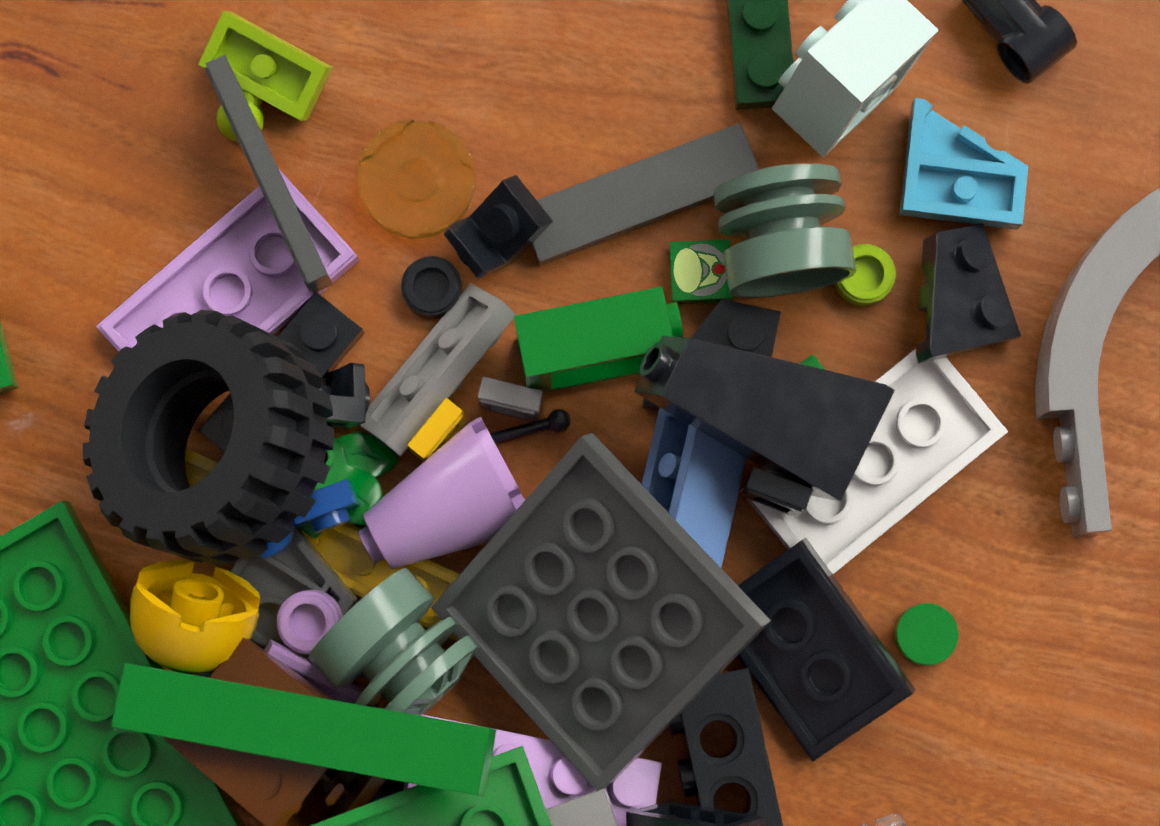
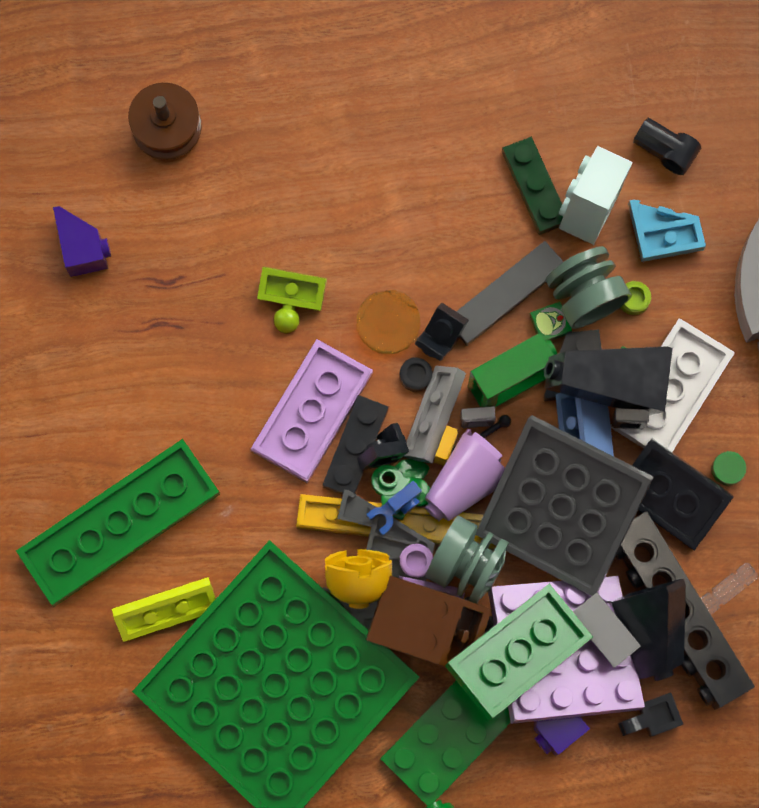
camera: 15 degrees left, 5 degrees down
(145, 425) = (301, 472): black tyre -> none
(267, 174) = (316, 342): dark grey tile -> none
(305, 729) = (439, 607): green tile -> none
(962, 295) = (688, 291): black wing -> none

